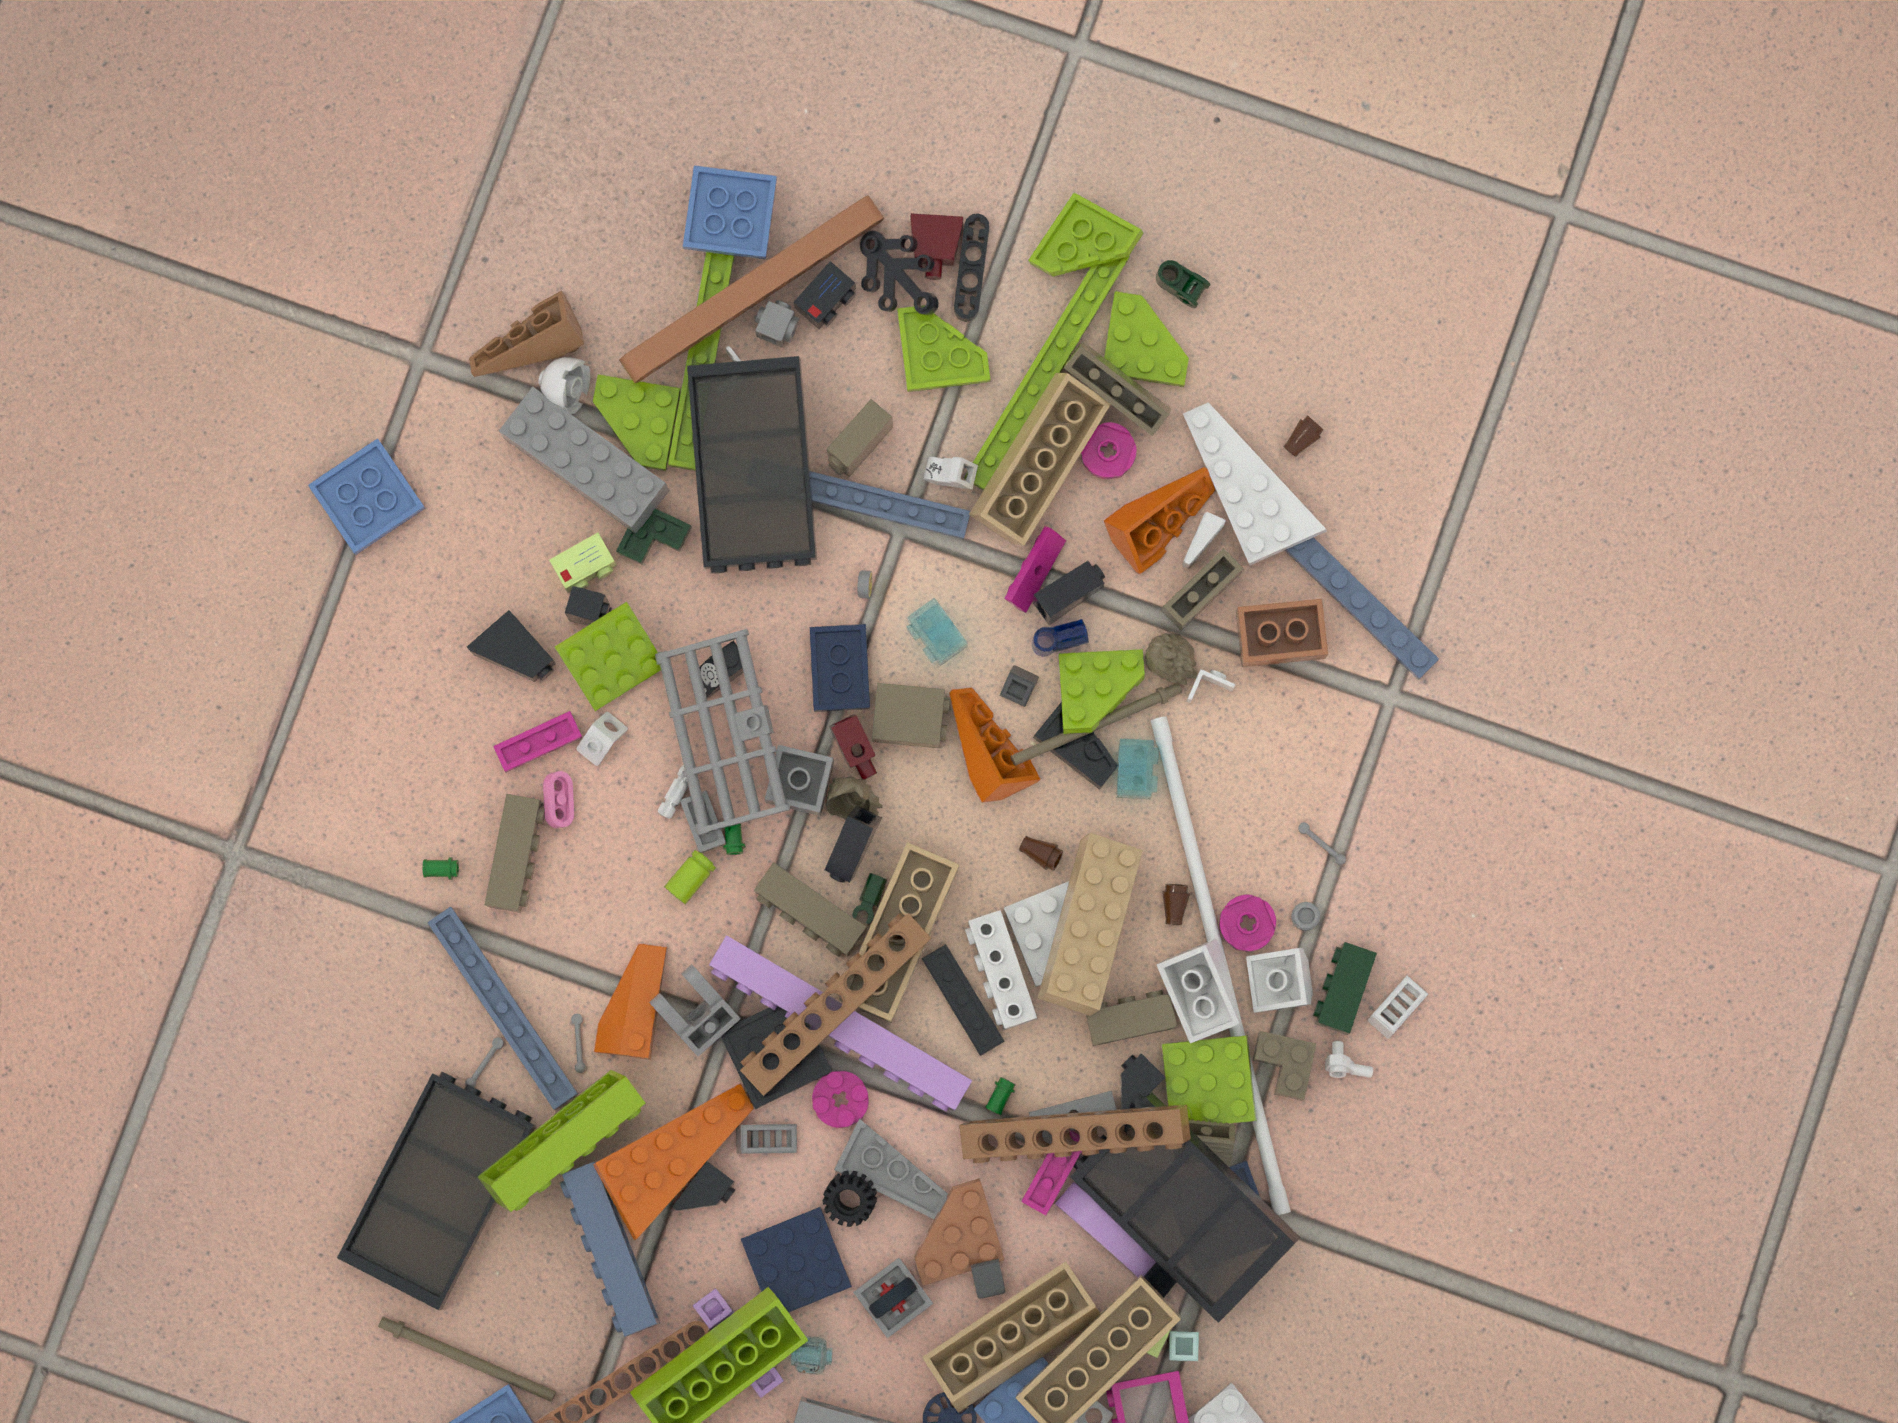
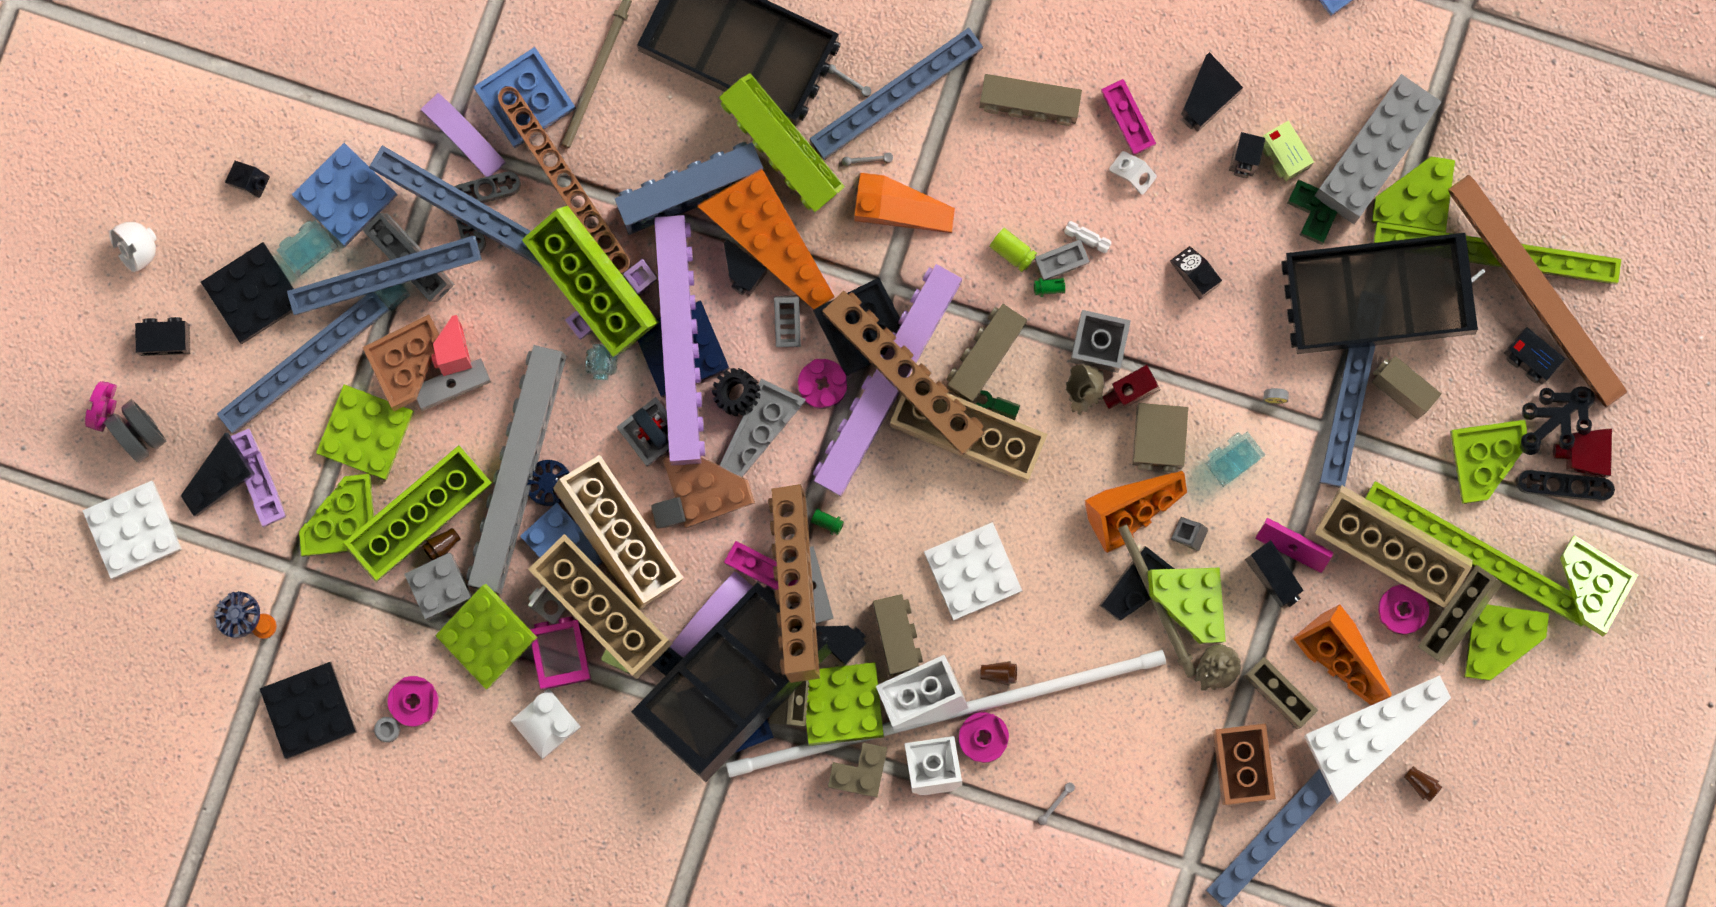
camera: 85 degrees right, 0 degrees up
(440, 868) = (1016, 42): green pin -> none
(540, 337) = (1485, 109): medium nougat wedge -> none
(558, 800) = (1077, 136): bright pink plate -> none
(564, 382) = (1446, 131): white cylinder -> none
(609, 656) = (1204, 174): lime plate -> none
(705, 1022) = (886, 264): light grey brick -> none
(729, 212) = (1605, 269): medium blue plate -> none
(742, 726) = (1145, 289): light grey door -> none
(776, 323) = (1507, 314): light grey brick -> none
(789, 1265) = (677, 340): none -> lavender brick
(839, 668) = (1200, 375): dark blue plate -> none
(852, 844) = (1045, 387): black slope -> none
(948, 472) = (1378, 465): white leg -> none
(963, 1000) = (910, 488): black tile -> none
(1002, 970) = (937, 521): white brick -> none
(1041, 852) = (1040, 558): reddish brown cone -> none
(1062, 637) = (1234, 571): clear blue piece -> none
(1090, 924) = (979, 595): tan brick -> none
(1136, 768) = (1118, 636): clear light blue brick -> none
(1183, 283) = (1558, 674): dark green piece -> none
(1183, 1346) = (611, 683): light aqua brick -> none
(1206, 532) = (1333, 697): white slope -> none
(1214, 677) = (1202, 705): white bracket -> none
(1305, 916) = (991, 789): light grey tile -> none
(1339, 1064) = (859, 819): white piece -> none
(1344, 987) = (927, 823): dark green brick -> none
(1381, 1023) = (896, 857): white slope -> none

